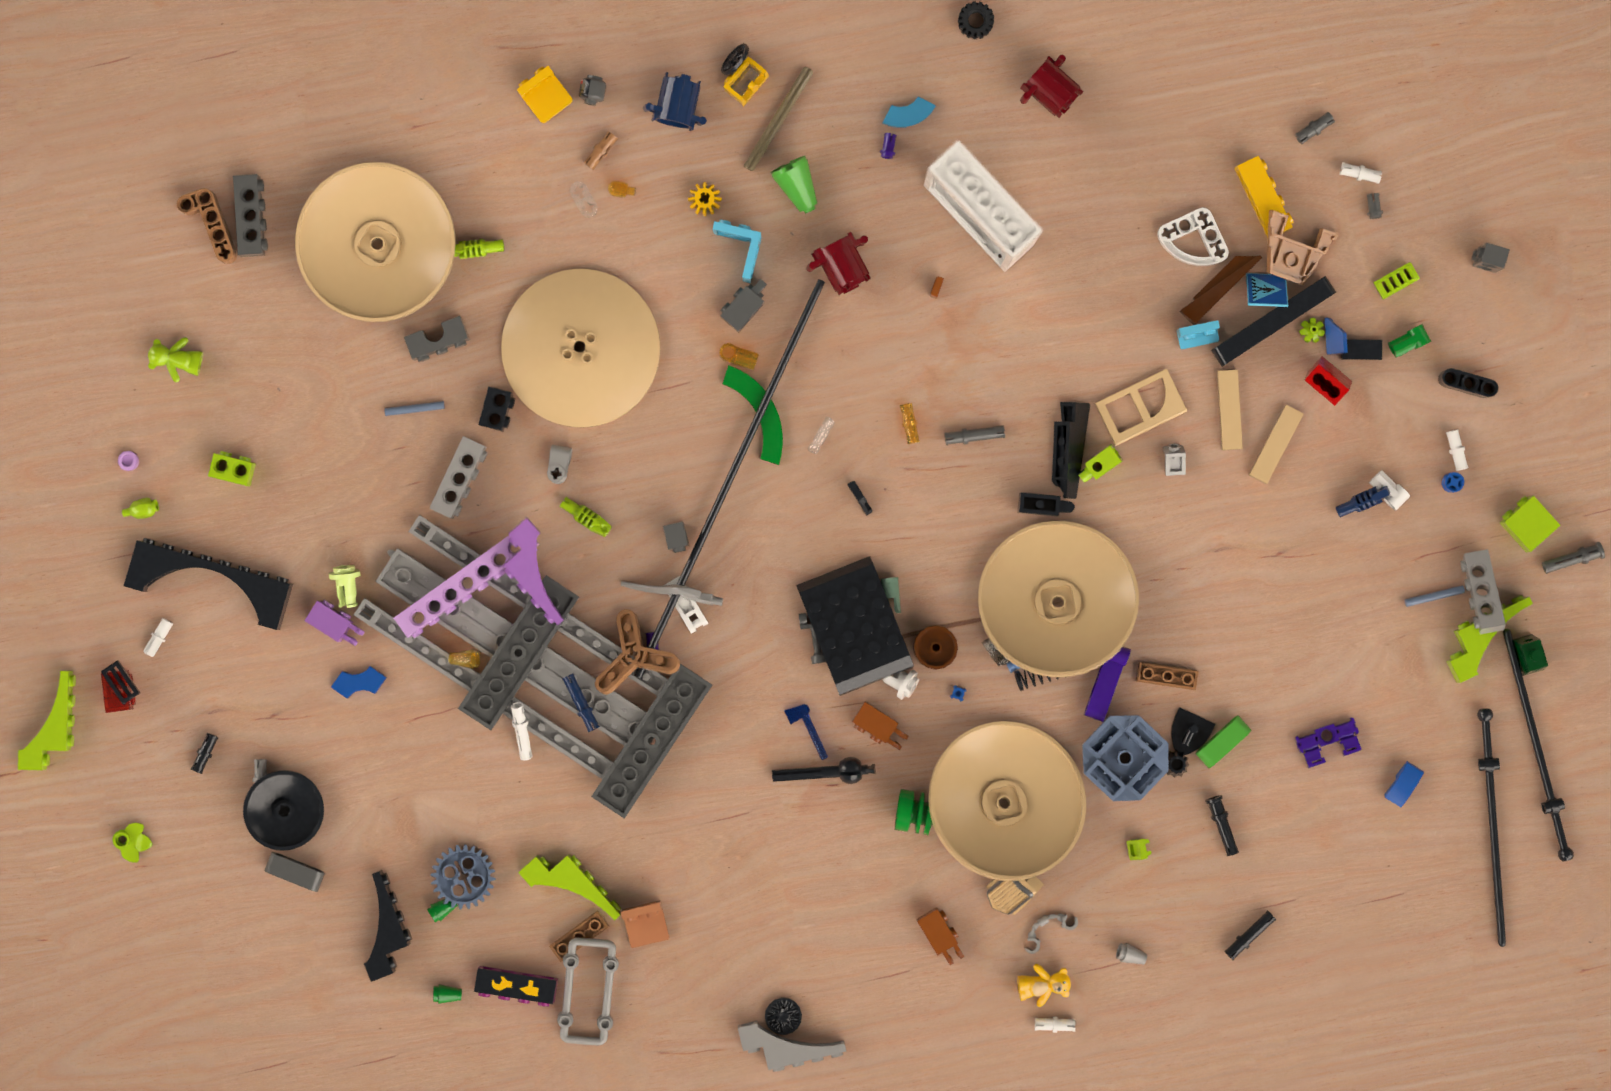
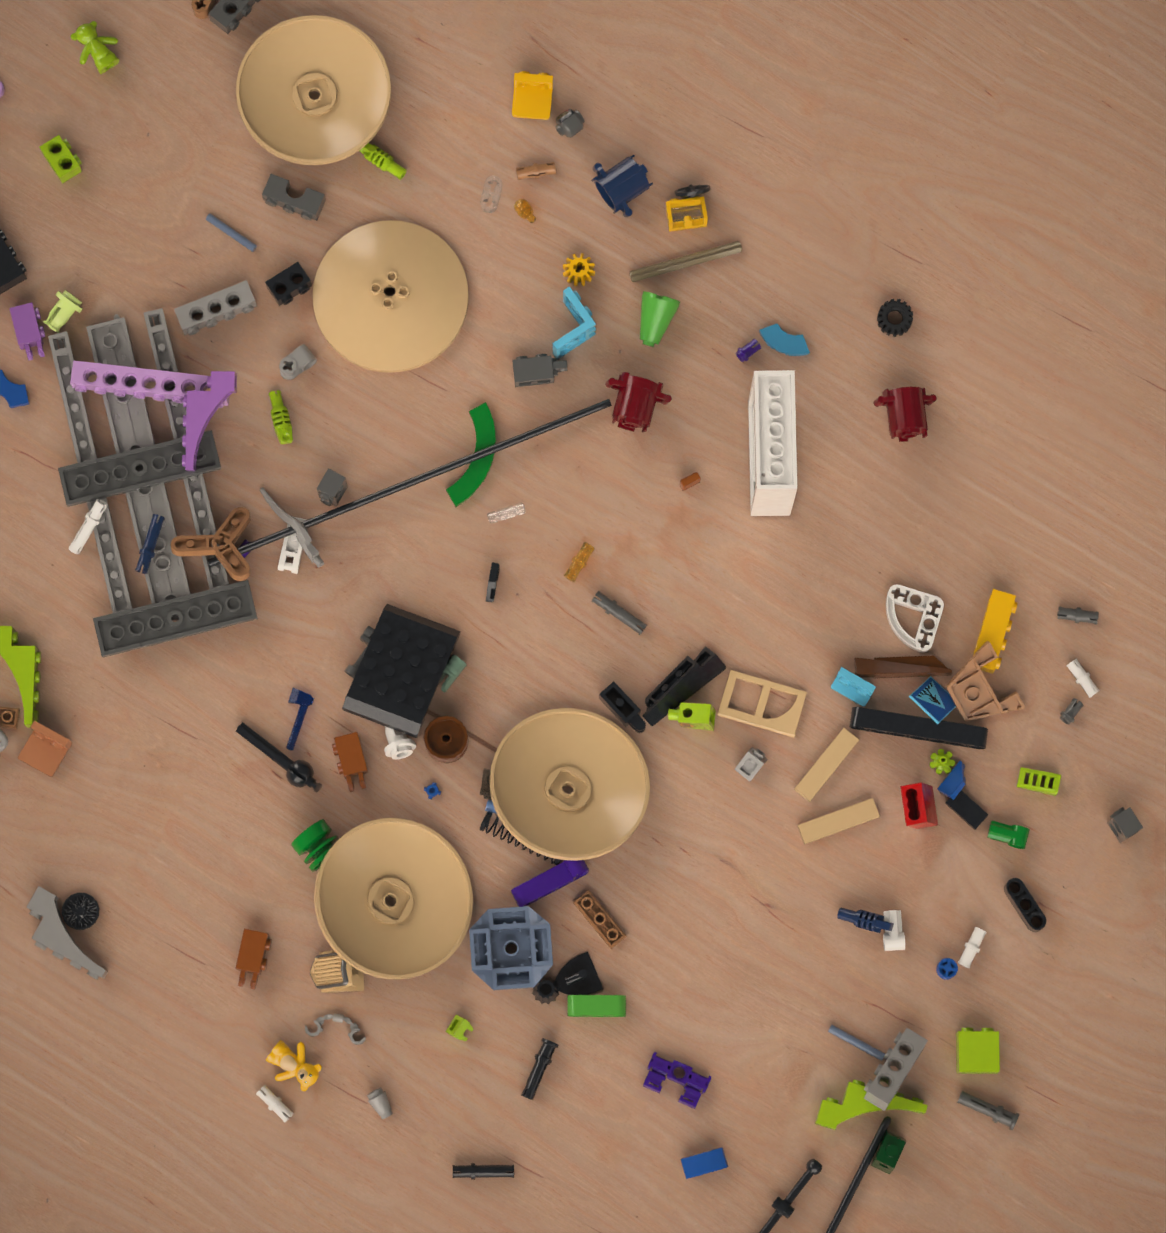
camera: 35 degrees right, 10 degrees down
(466, 658) = (98, 438): clear yellow cone -> none
(741, 356) = (499, 403): clear yellow piece -> none

